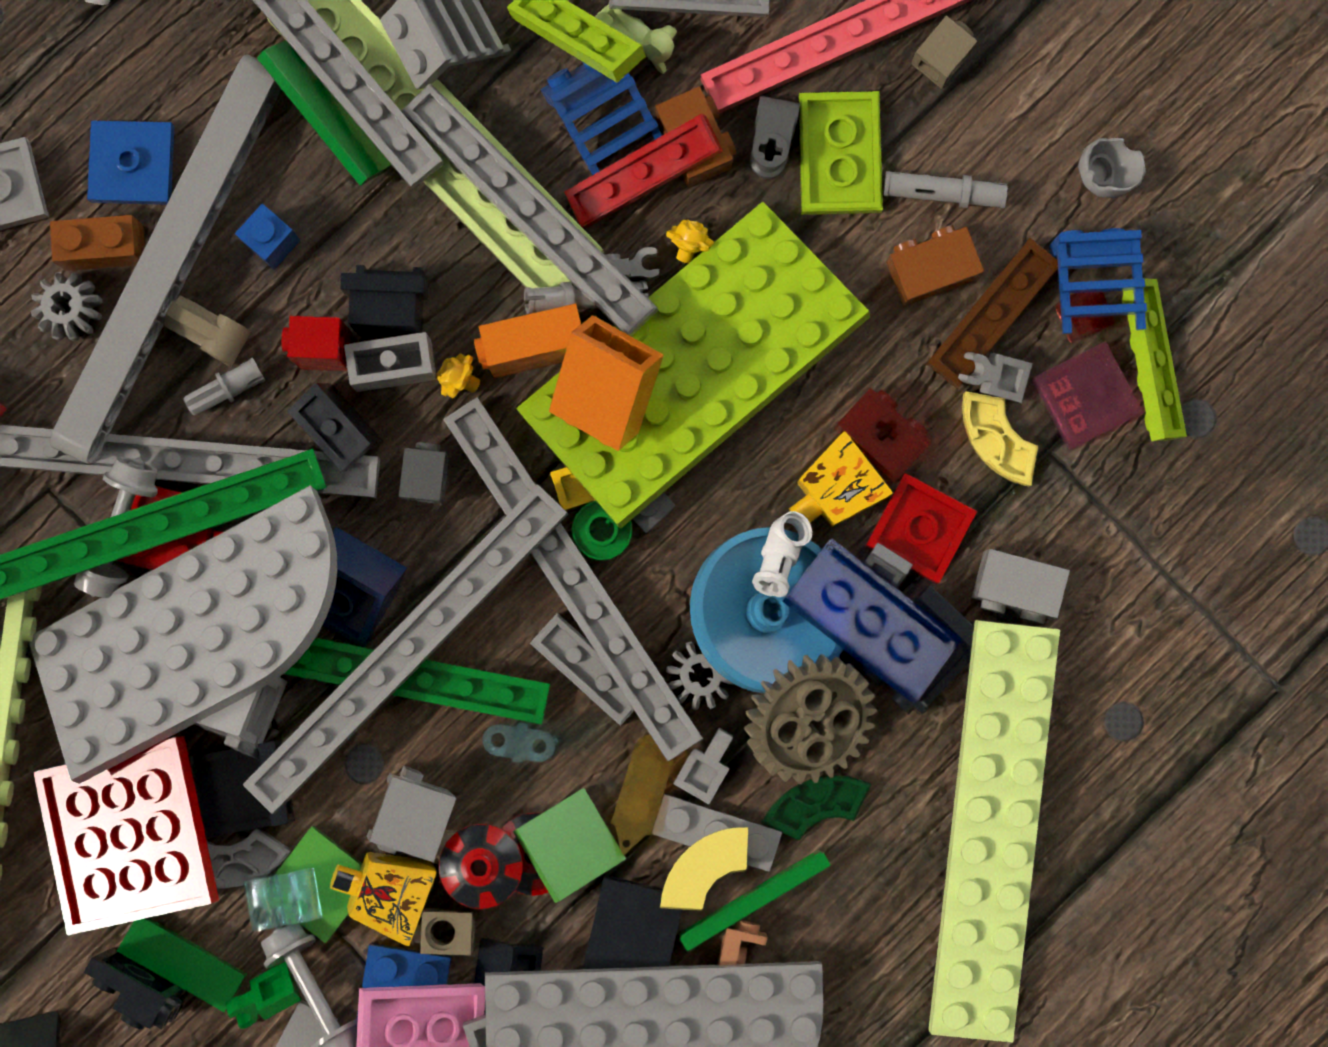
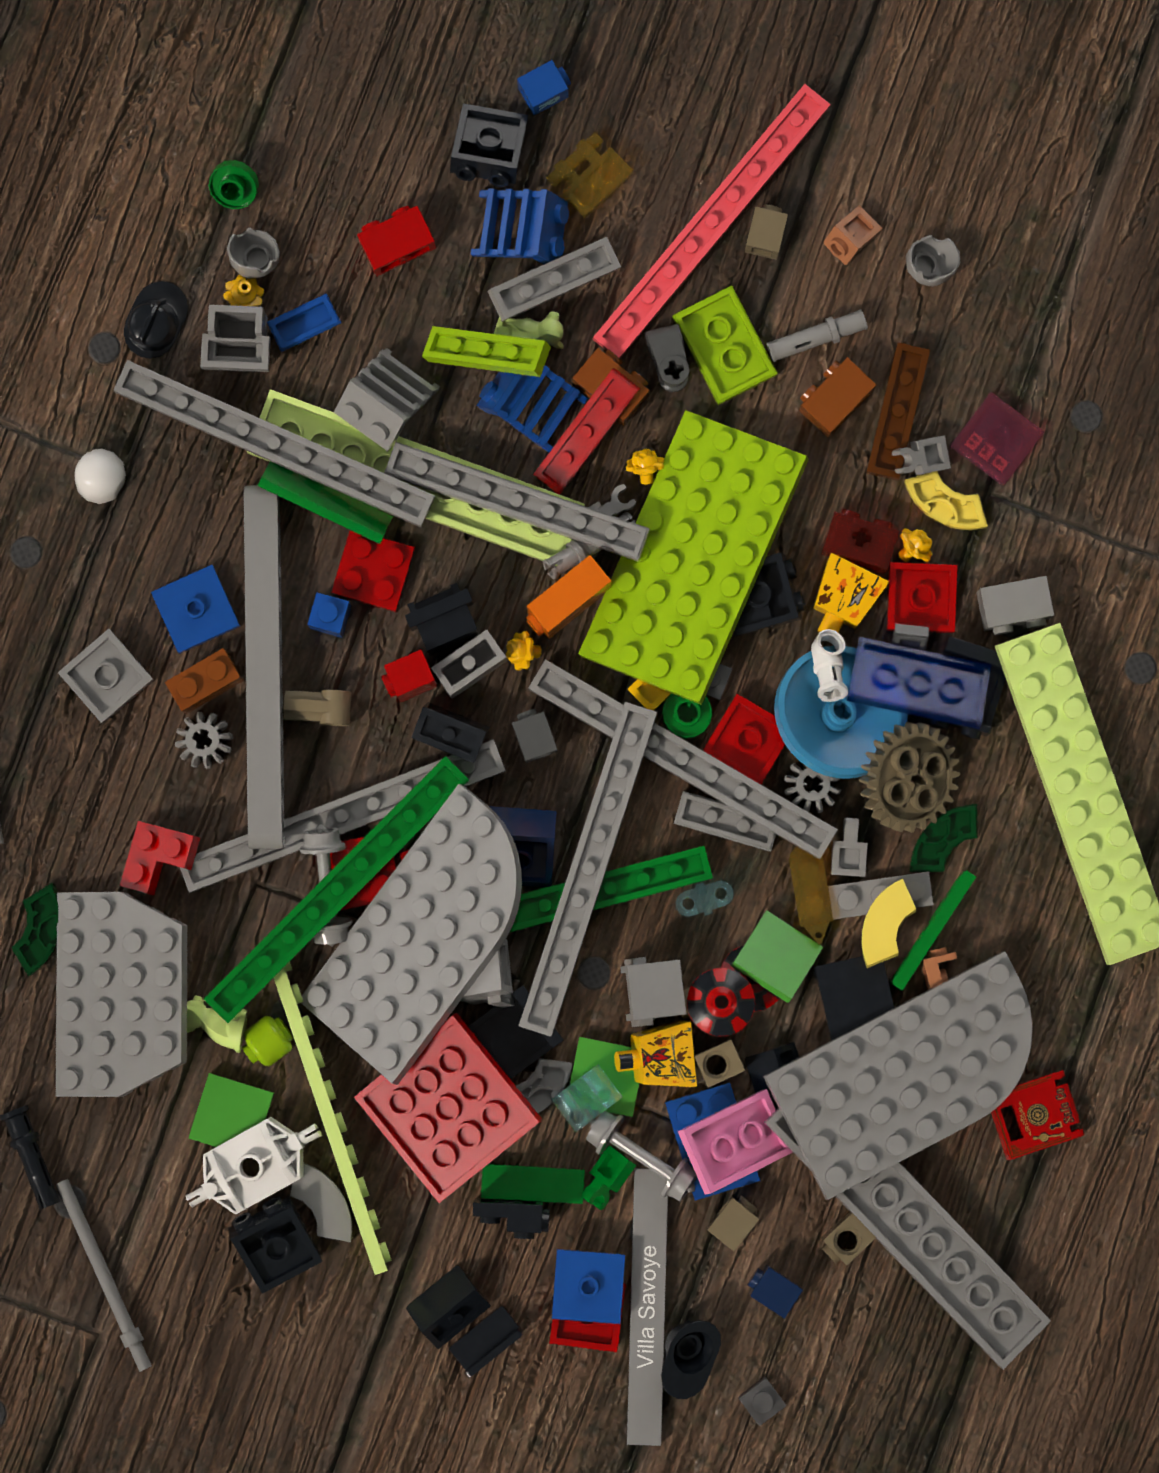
camera: 25 degrees left, 0 degrees up
(224, 387) = (352, 743): light grey axle -> none
(341, 214) = (373, 571): none -> red plate
(605, 382) = (641, 602): orange brick -> none
(652, 591) = (746, 739): none -> red plate
(756, 449) = (772, 597): none -> black plate
(942, 468) = (916, 545): none -> yellow plant
(1036, 98) = (852, 235): none -> nougat bracket
(1087, 325) = (966, 377): clear red panel -> none
(1097, 250) = (959, 324): blue plate -> none
(1155, 368) = (1033, 388): lime plate -> none

